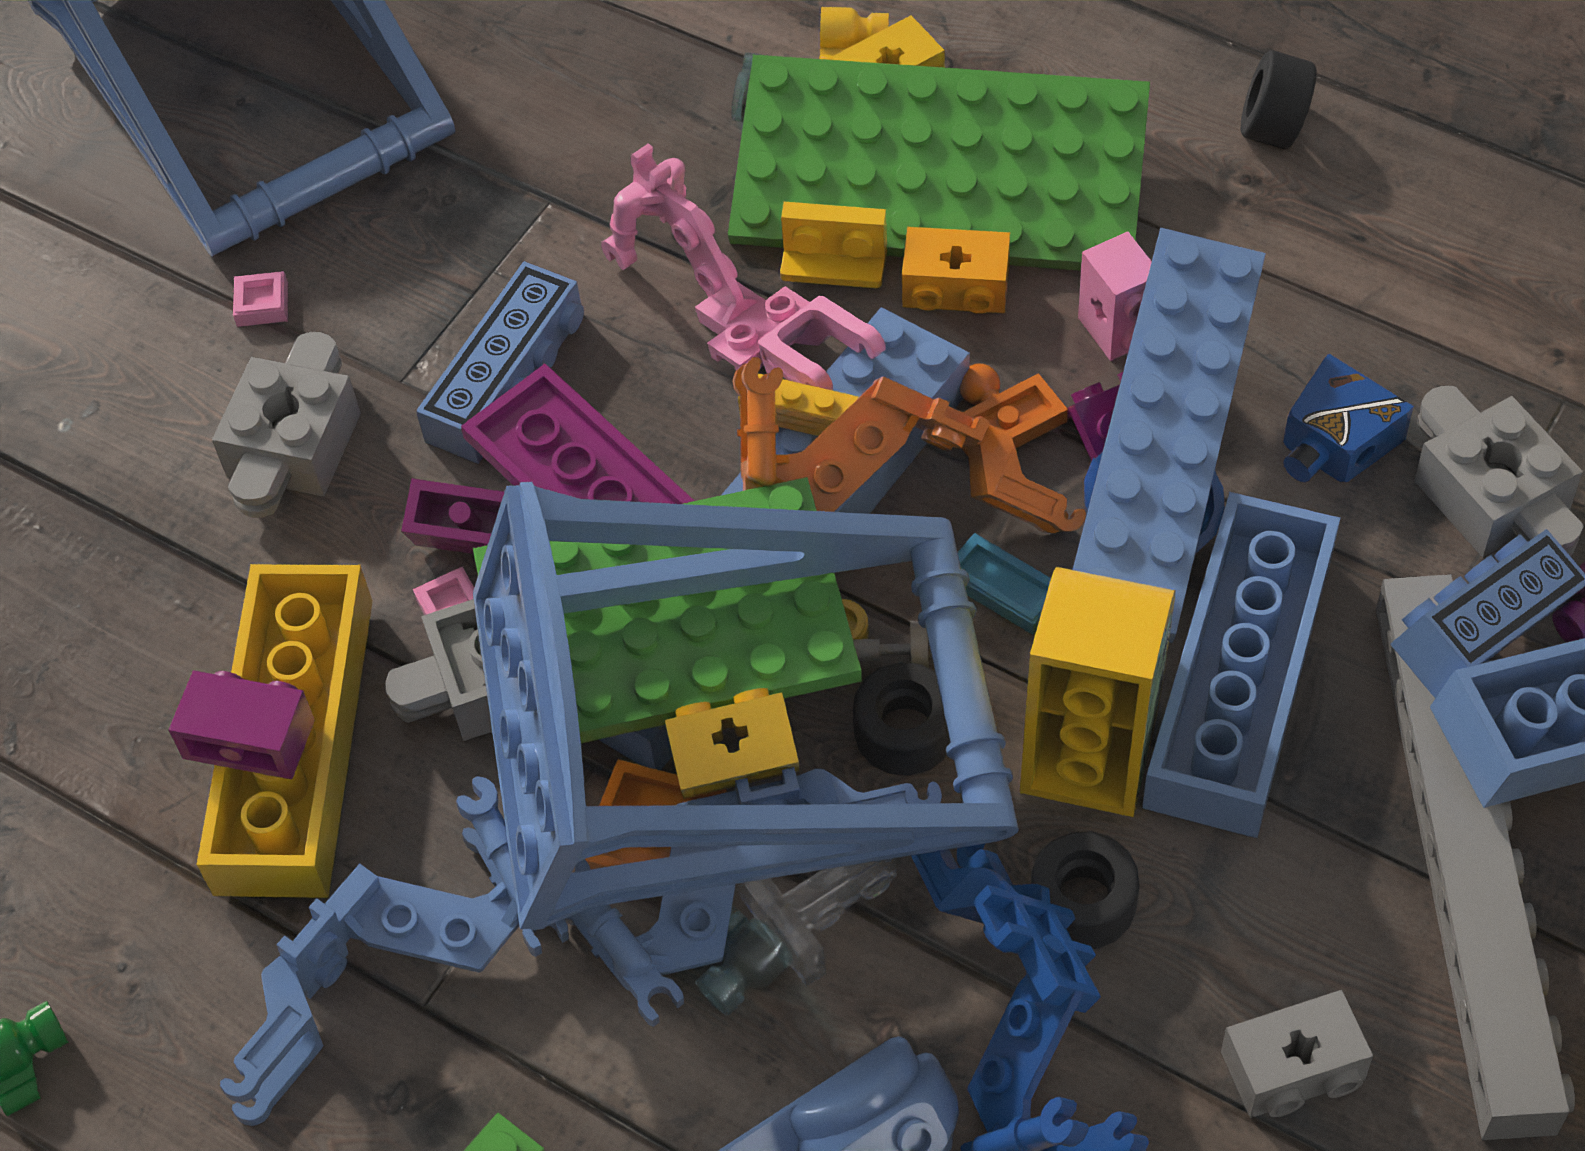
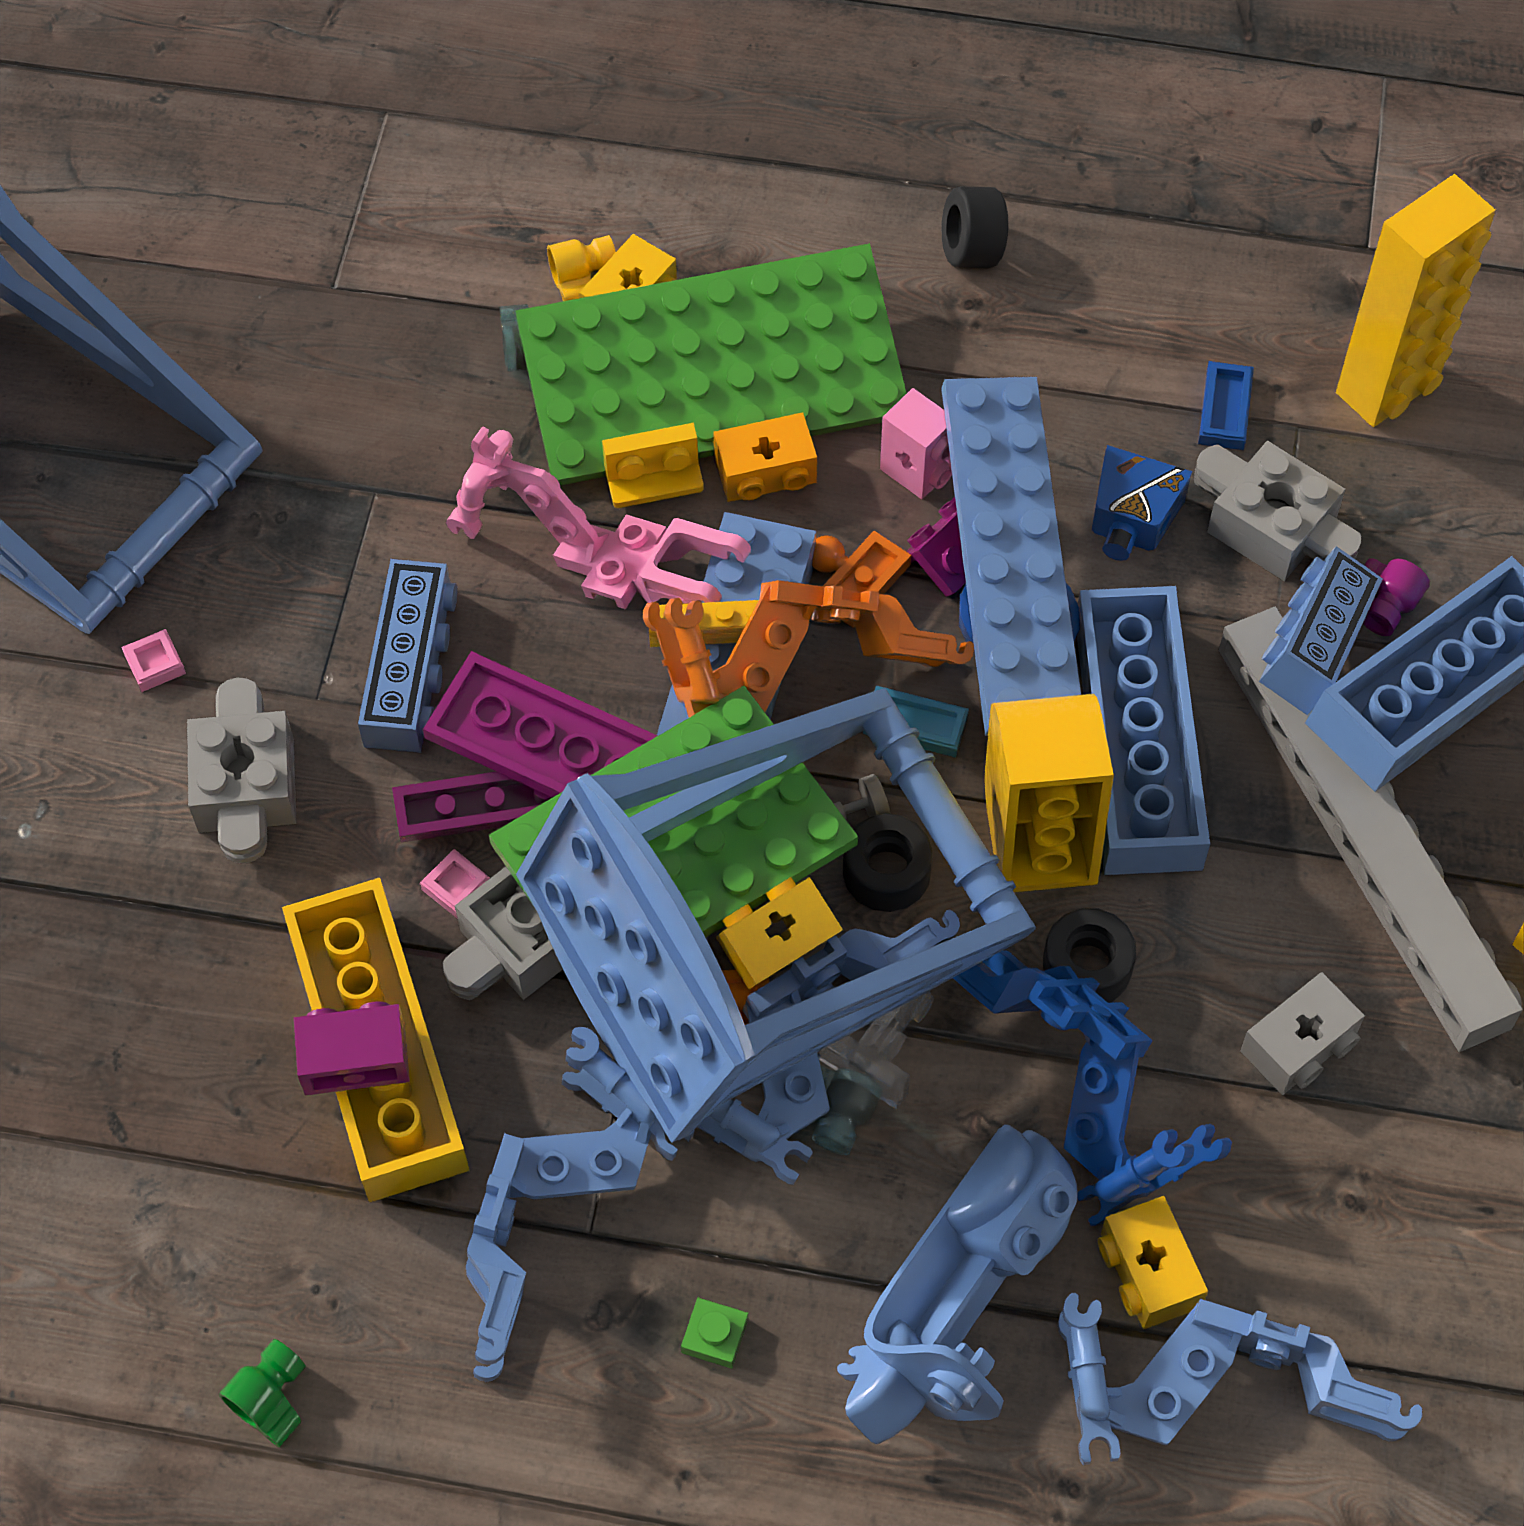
camera: 25 degrees left, 5 degrees up
(1489, 354) = (1226, 405): none -> blue tile

